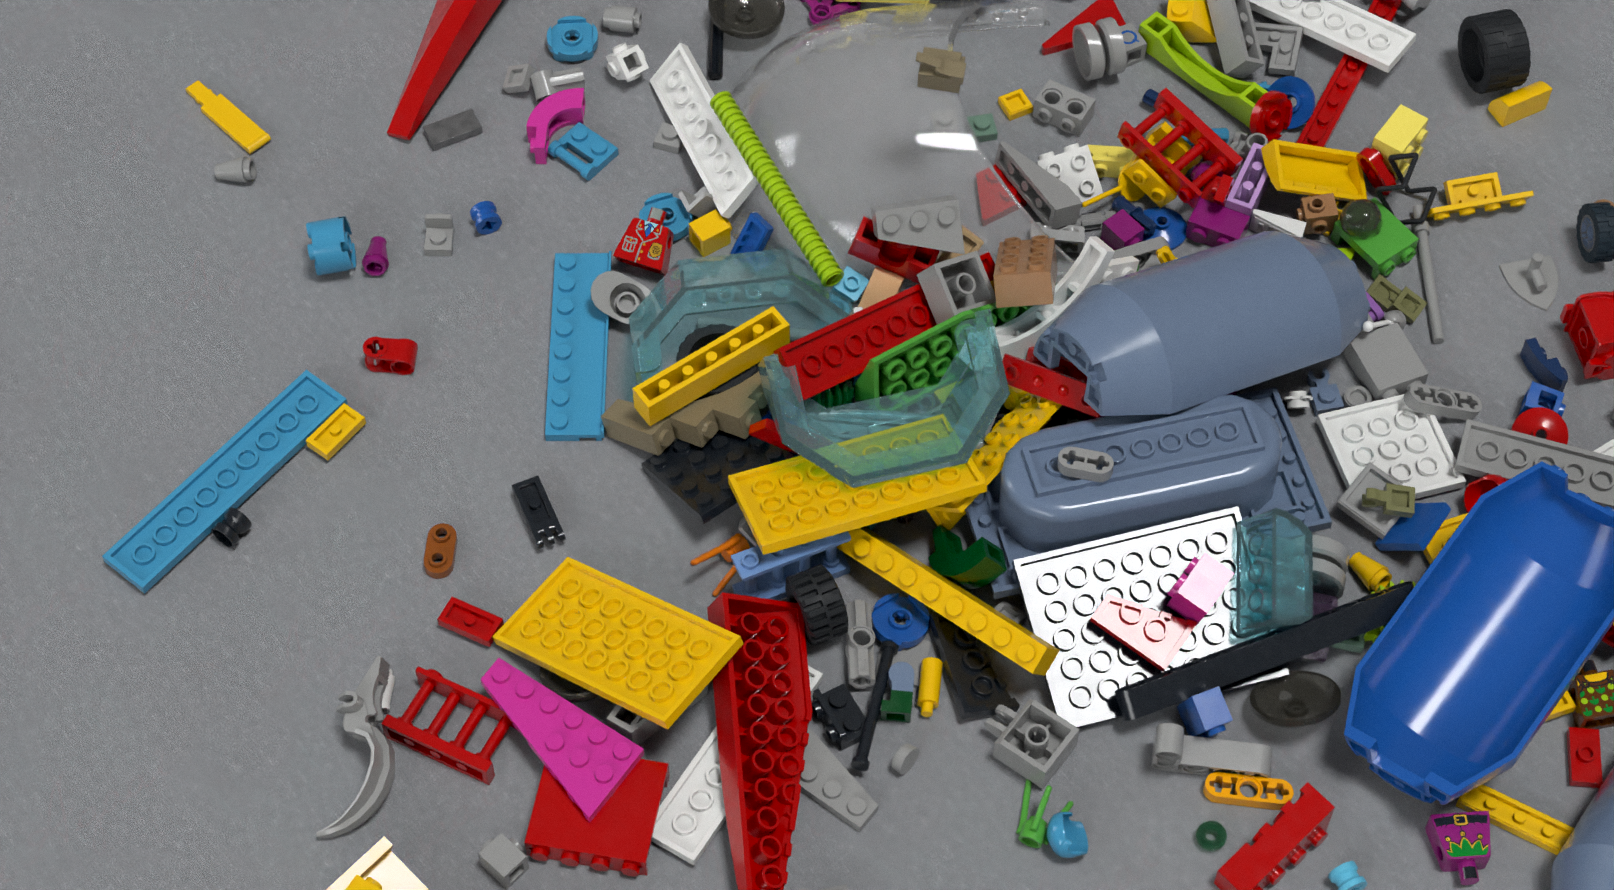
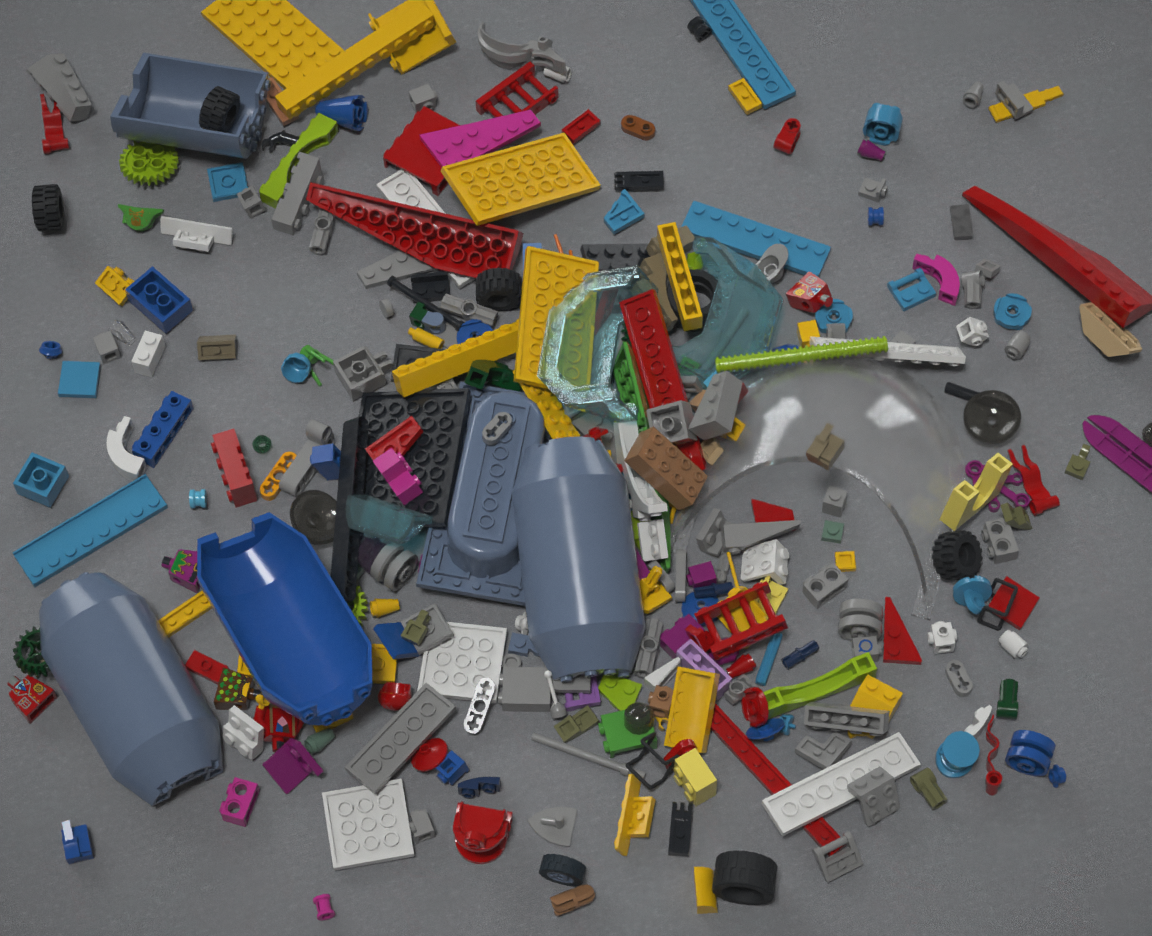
camera: 115 degrees right, 5 degrees up
(233, 121) = (1013, 99): none -> light grey panel
(603, 514) = (623, 213): none -> dark azure wing
(1461, 149) = (680, 830): none -> black hinge

